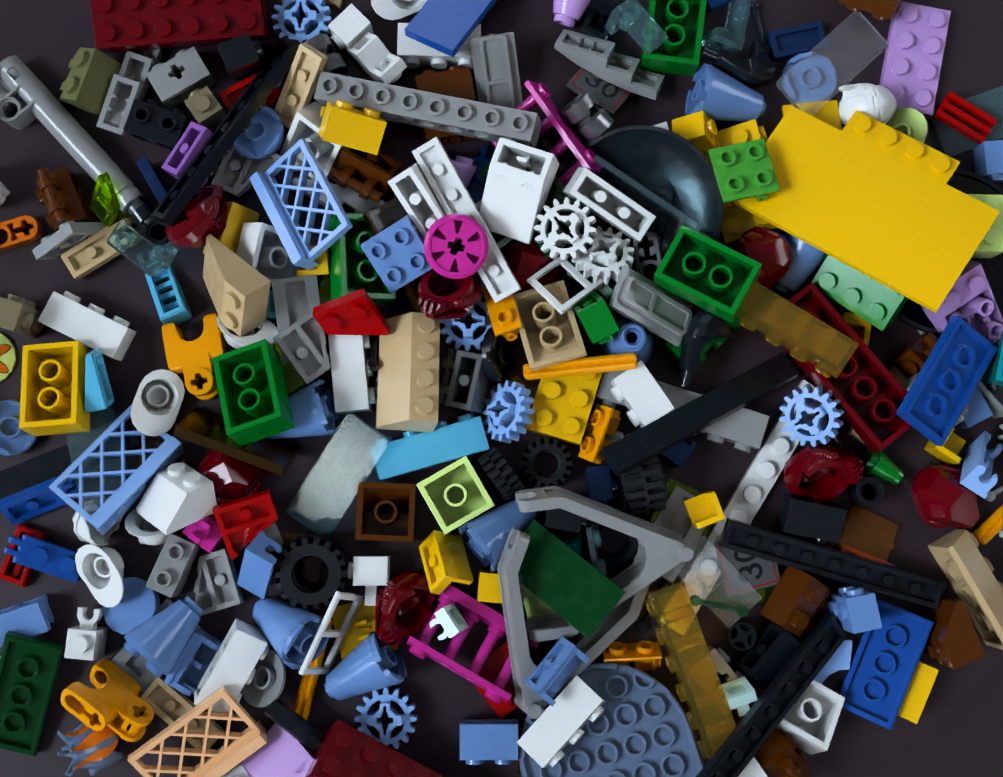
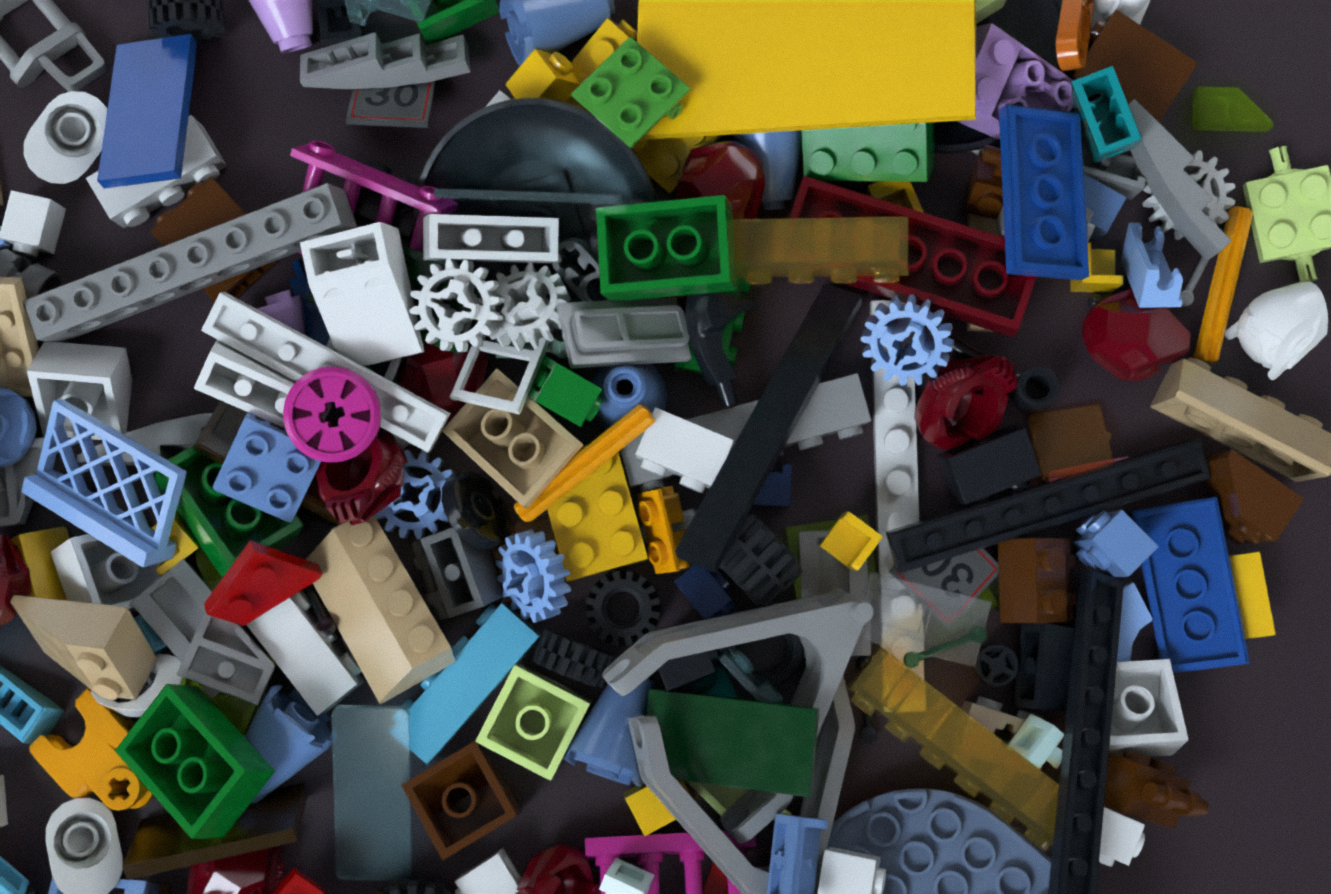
camera: 30 degrees left, 0 degrees up
(352, 126) = (107, 346): yellow brick -> none
(365, 173) = (161, 390): reddish brown brick -> none
(376, 59) = (89, 240): white brick -> none
(444, 561) = (573, 812): yellow panel -> none
(496, 69) = (247, 158): light grey piece -> none
(503, 316) = (451, 461): light orange hinge -> none
(586, 115) = (397, 146): flat silver wheel -> none
(644, 654) = (891, 765): light orange hinge -> none
(881, 467) = (1033, 347): green cone -> none

